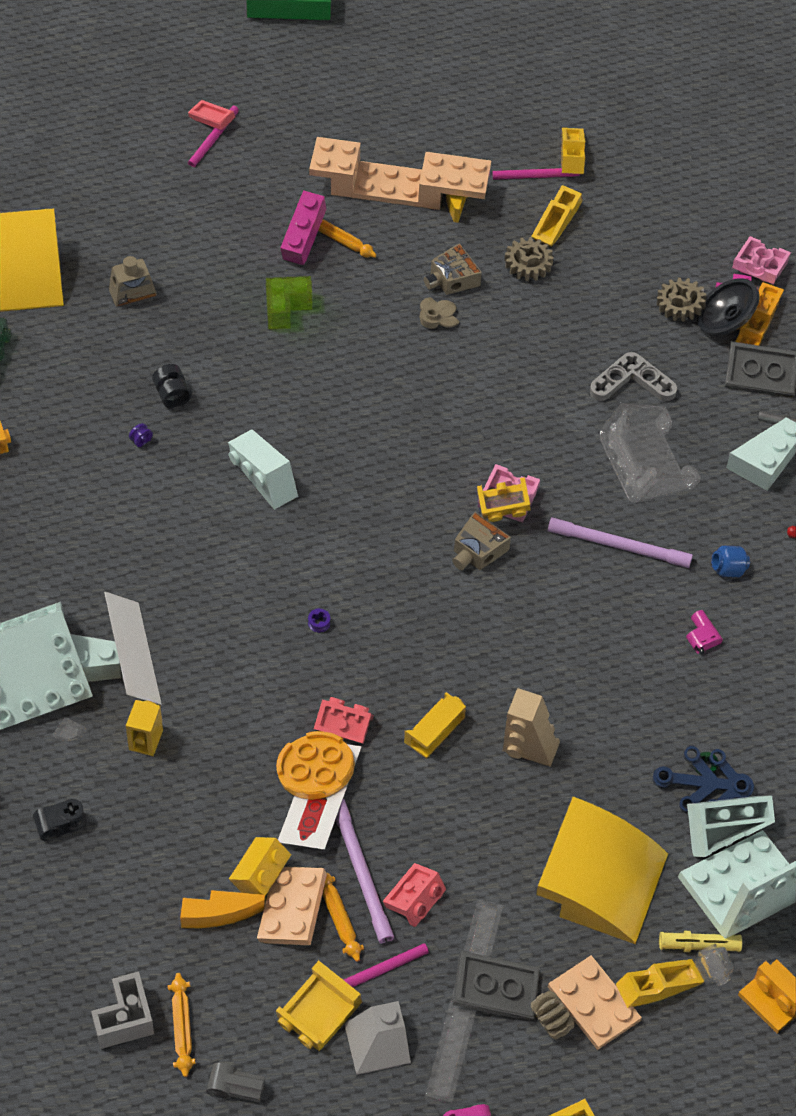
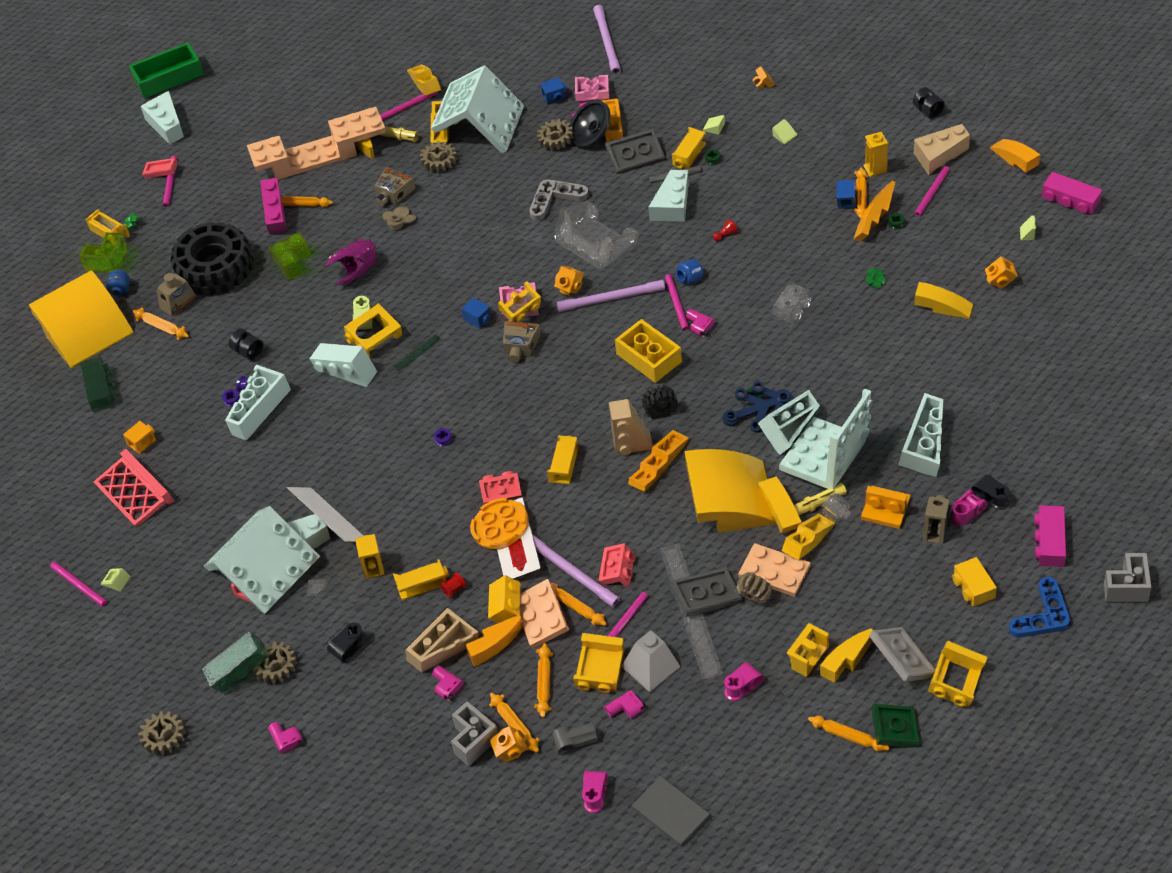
camera: 20 degrees left, 5 degrees down
(80, 236) = (118, 283): none -> blue head
(87, 196) = (106, 256): none -> clear neon green brick
(97, 310) = (160, 323): none -> light orange wheel
(109, 159) = (101, 223): none -> yellow window
(117, 437) = (229, 393): none -> dark purple bush
(139, 464) = (257, 401): none -> light aqua wedge
(140, 165) = (131, 220): none -> green plant
(140, 934) = (448, 684): none -> dark pink piece
(156, 1049) = (508, 744): none -> light orange brick
(159, 877) = (440, 641): none -> tan wedge
(186, 787) = (421, 580): none -> yellow window
(197, 283) = (208, 241): none -> black tyre
(217, 814) = (453, 585): none -> red bush
(245, 991) = (543, 683): none -> light orange wheel
(252, 53) = (163, 118): none -> light aqua wedge
(302, 459) = (390, 325): none -> yellow panel
(322, 416) = (361, 305): none -> yellowish green piece
(322, 1074) = (628, 703): none -> dark pink piece
(355, 496) = (418, 351): none -> clear green bar
(357, 342) = (355, 259): none -> magenta head
(451, 483) = (476, 313): none -> blue brick
(503, 207) = (400, 134): none -> light yellow pin
(545, 786) = (657, 462): none -> light orange slope
(581, 497) = (568, 280): none -> light orange brick
(589, 713) = (659, 402): none -> black tyre
(614, 221) = (484, 103): none -> light aqua bracket
(617, 639) = (648, 350): none -> yellow brick
(648, 923) = (779, 504): none -> yellow slope
(692, 592) = (676, 301): none -> dark pink piece
(714, 241) = (553, 91): none -> blue brick

